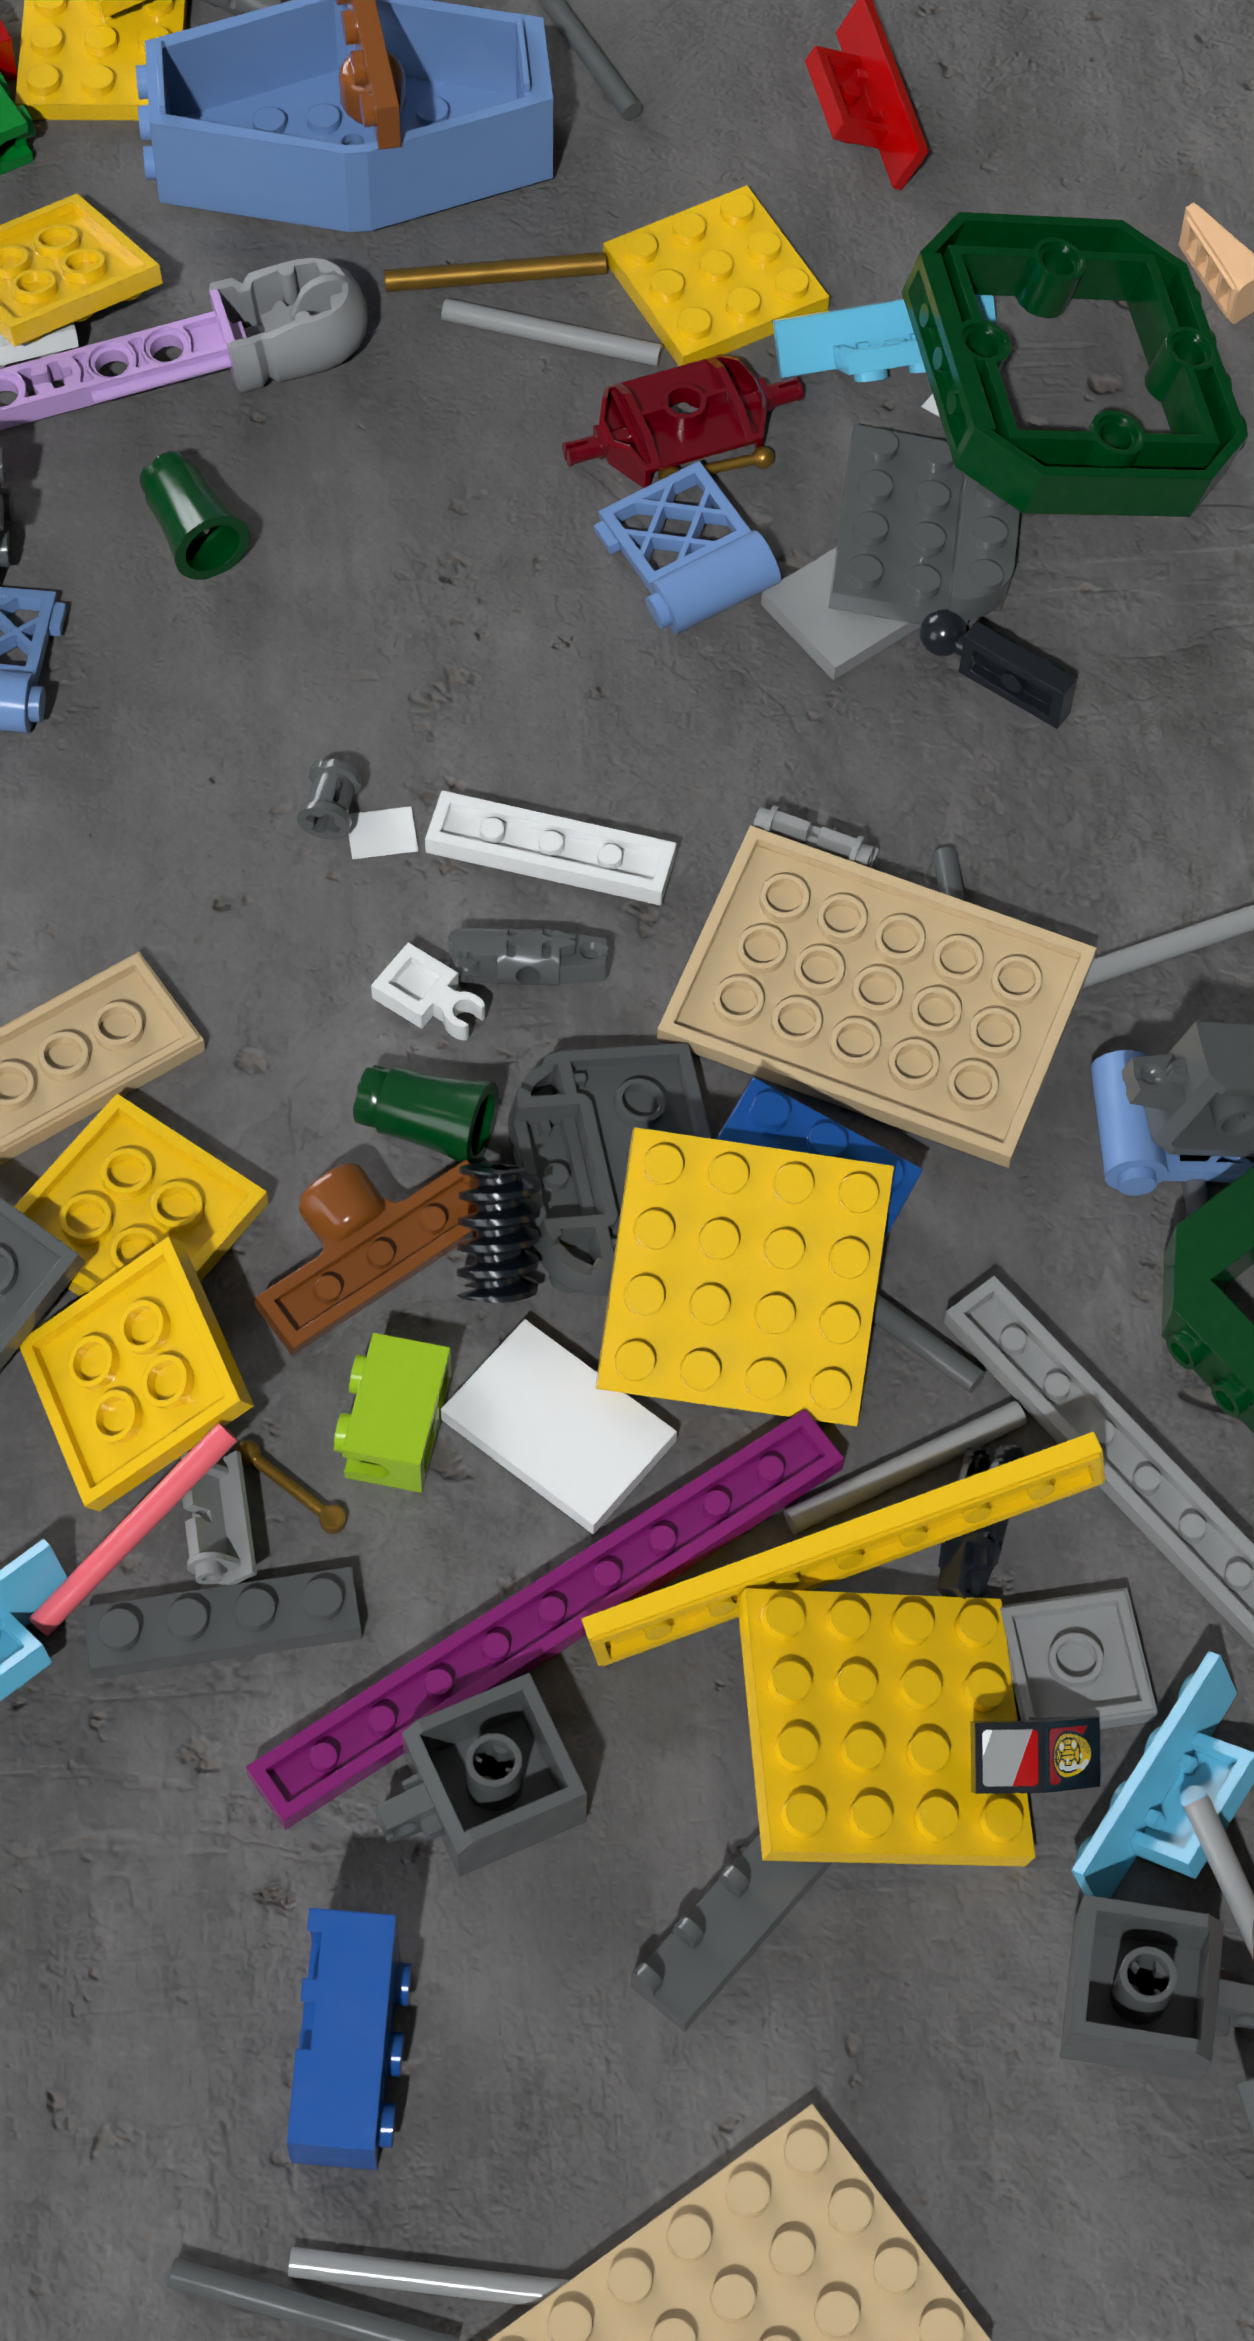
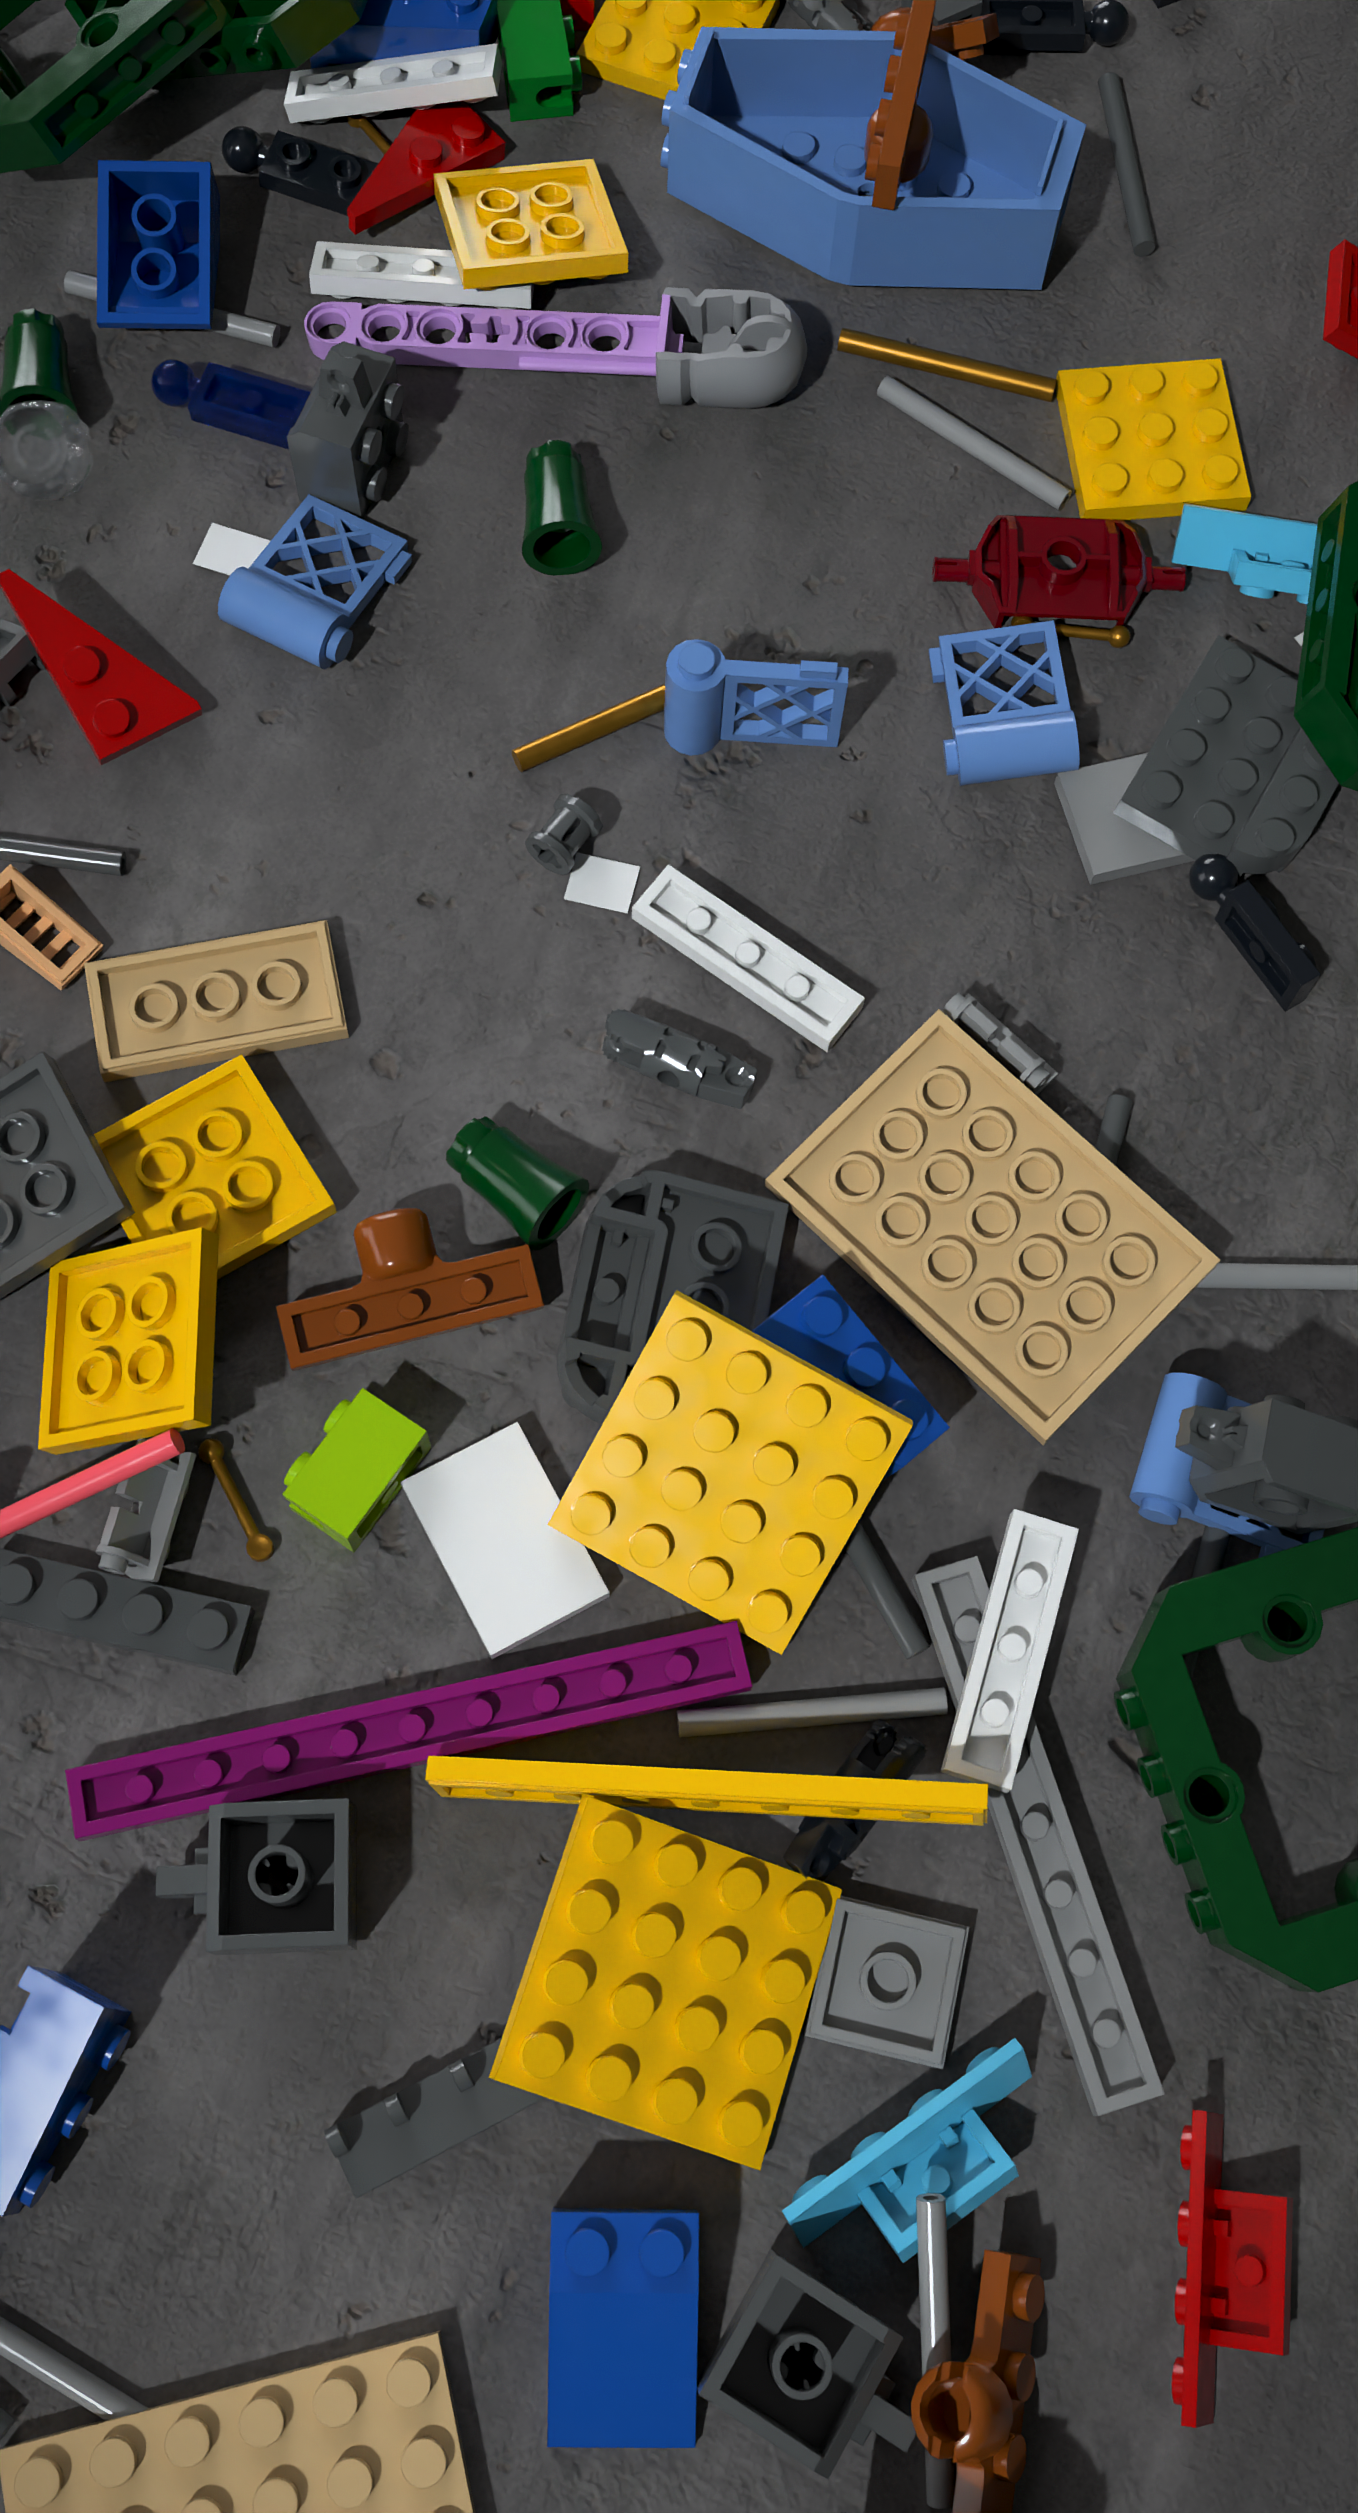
camera: 20 degrees right, 10 degrees up
(332, 679) = (589, 729): none -> pearl gold bar
(415, 626) = (708, 700): none -> medium blue piece
(424, 988) = (567, 1054): white plate -> none
(500, 1233) = (525, 1333): black piece -> none
(973, 2028) = (623, 2328): none -> blue slope
(1035, 1755) = (800, 2080): slope -> none
(1059, 1329) = (1010, 1651): none -> white plate

